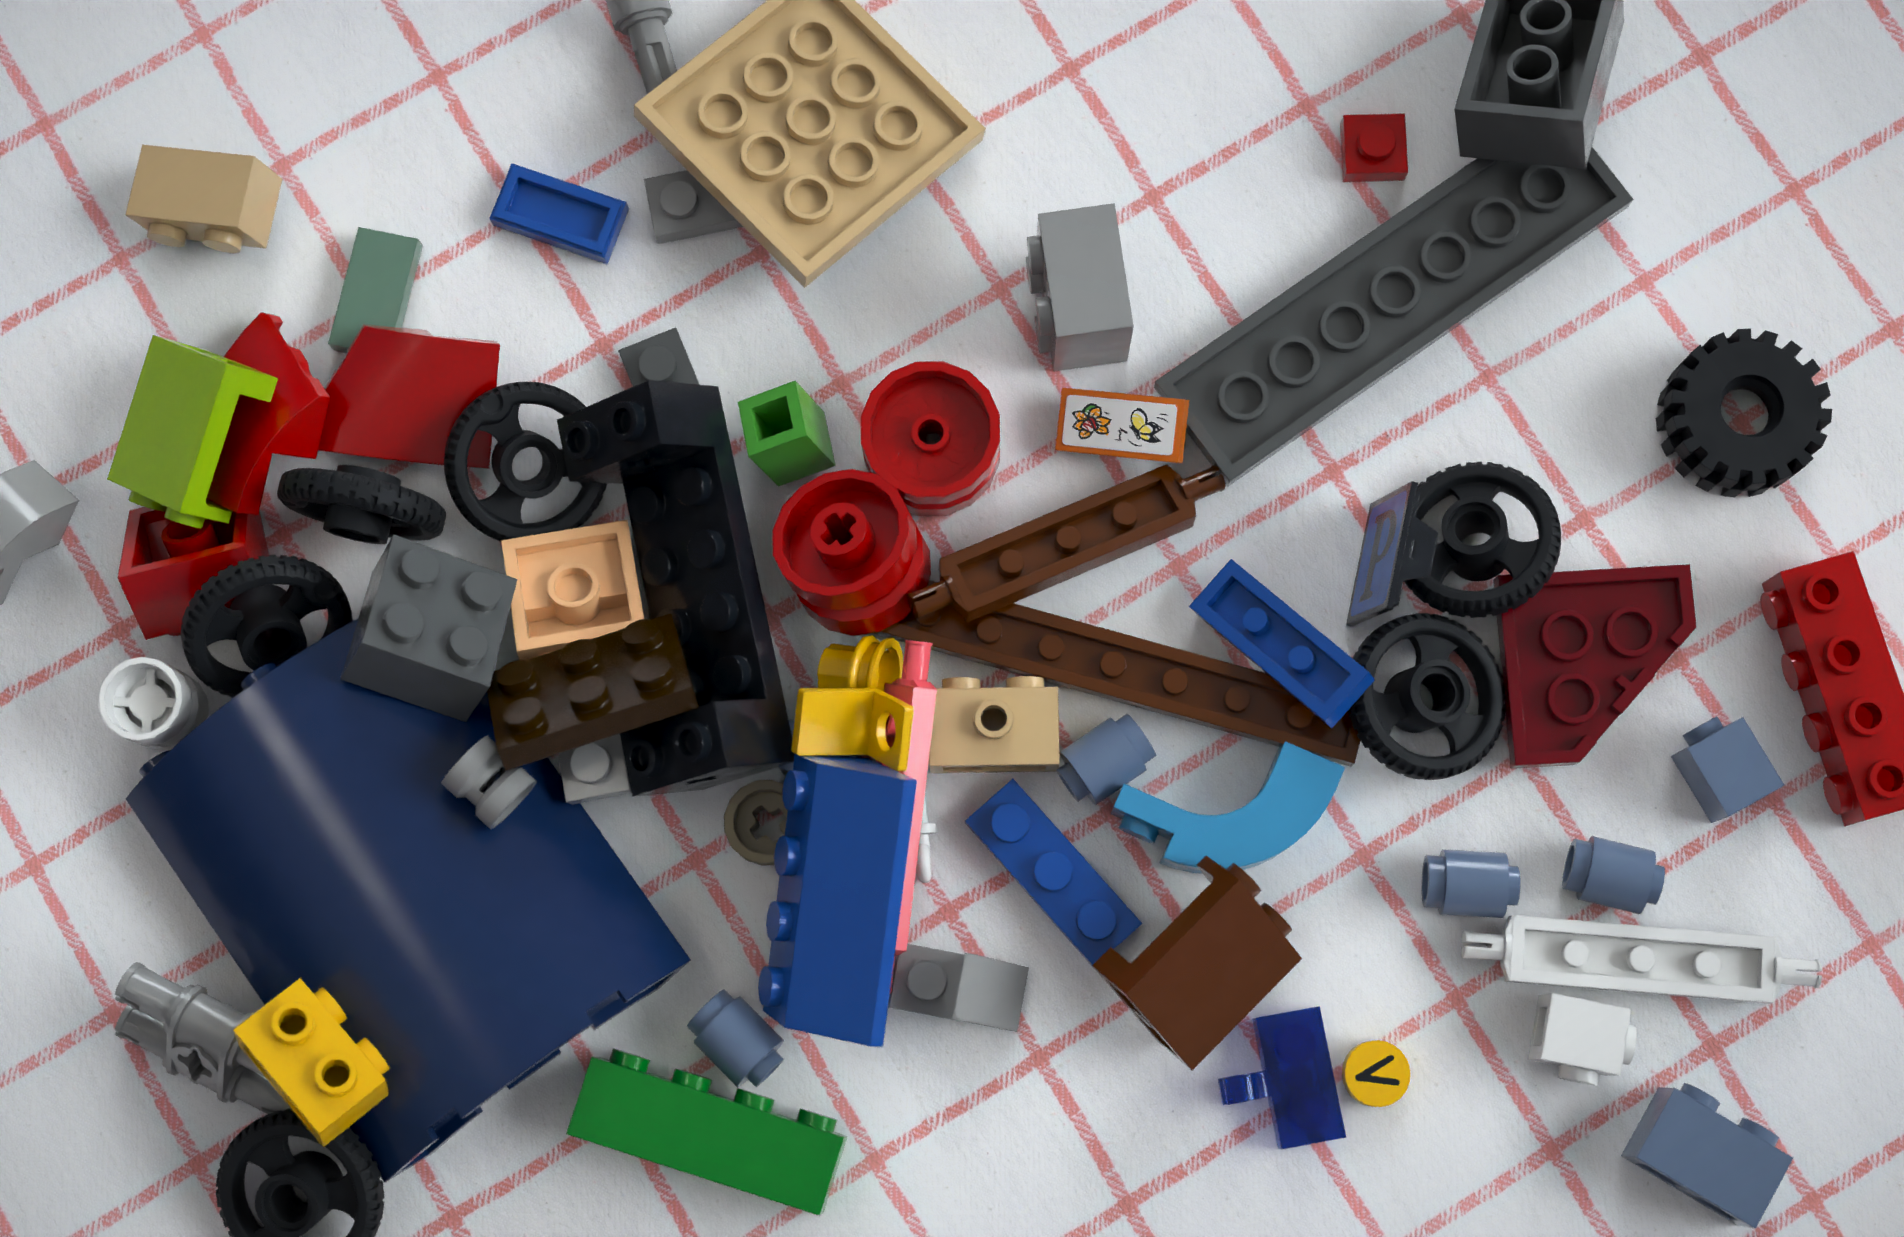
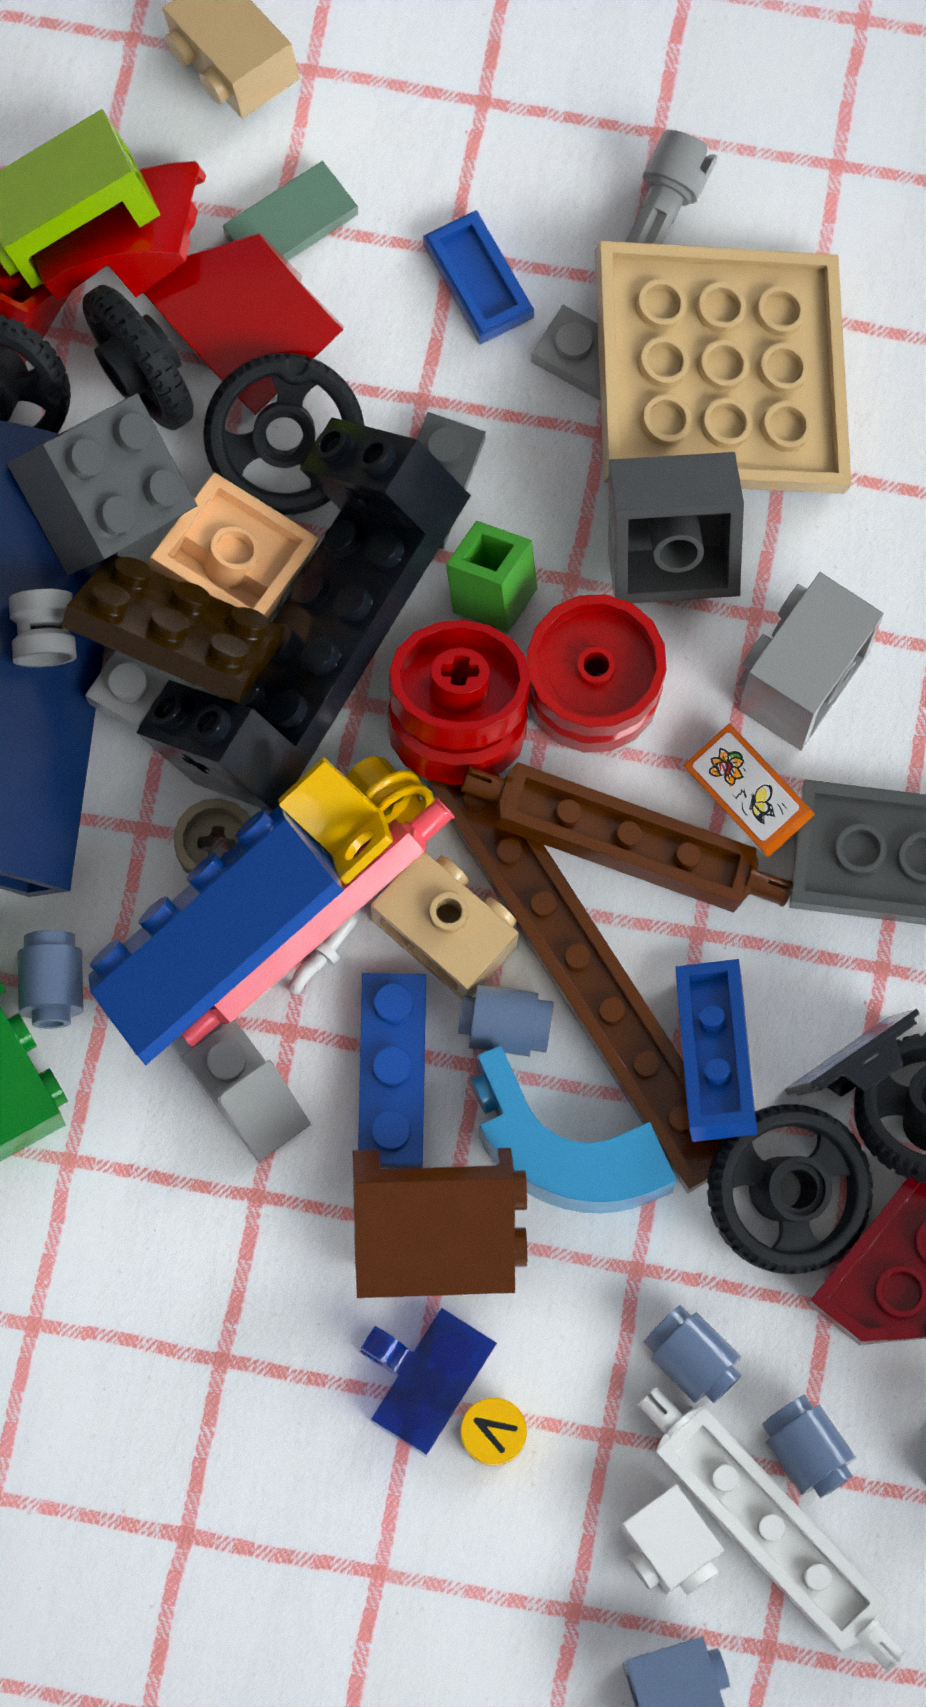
camera: 35 degrees right, 5 degrees down
(891, 274) = (675, 527): none -> dark grey brick

